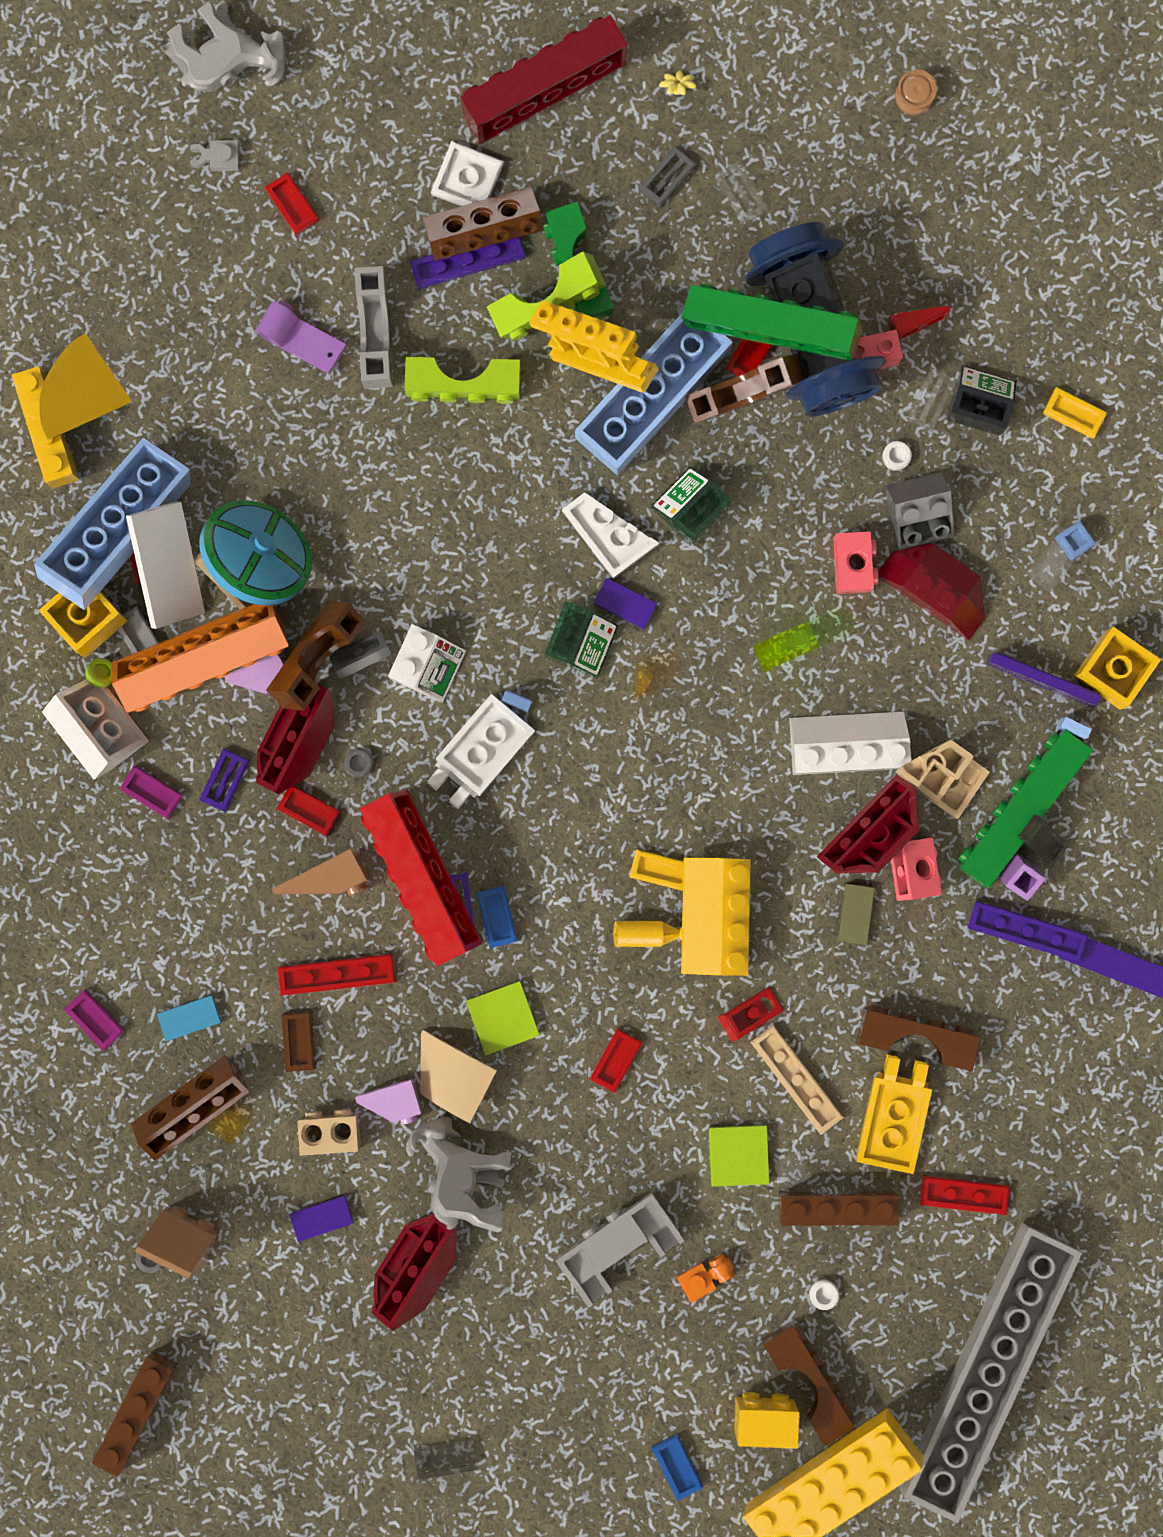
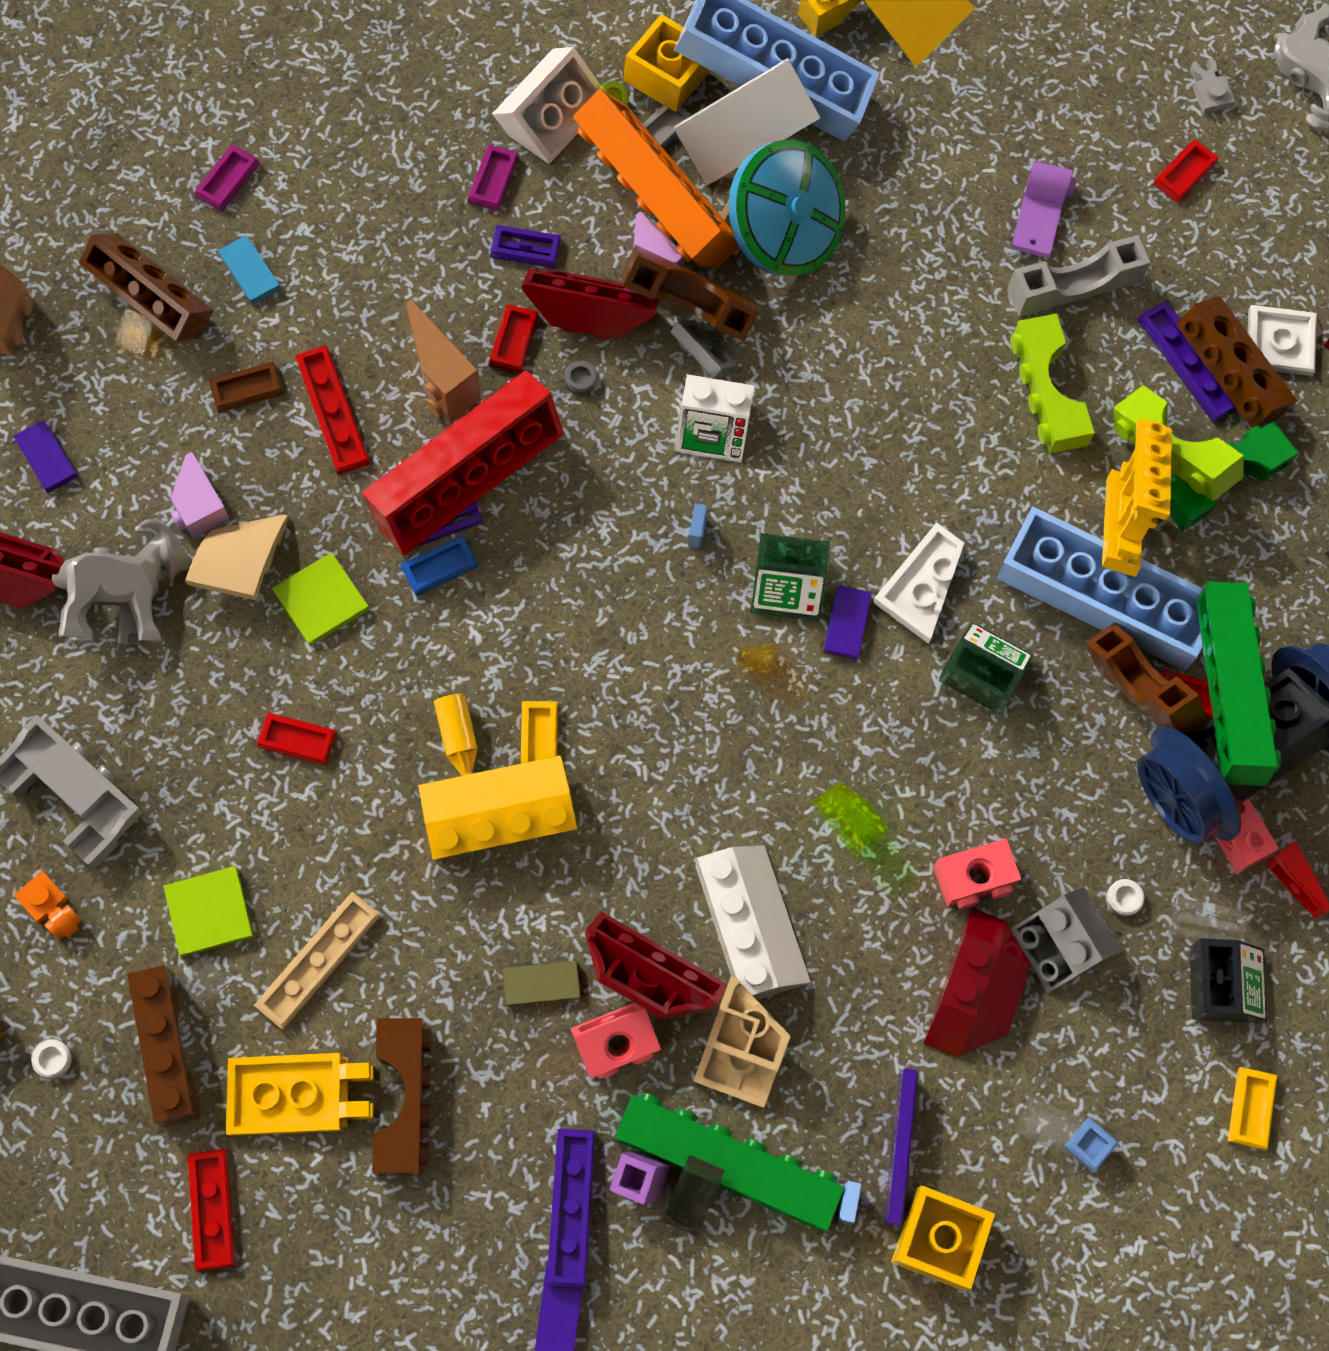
camera: 70 degrees right, 15 degrees down
(330, 1140) = (140, 441): tan brick -> none
(480, 750) = (628, 501): white tile -> none
(749, 1014) = (387, 884): red slope -> none

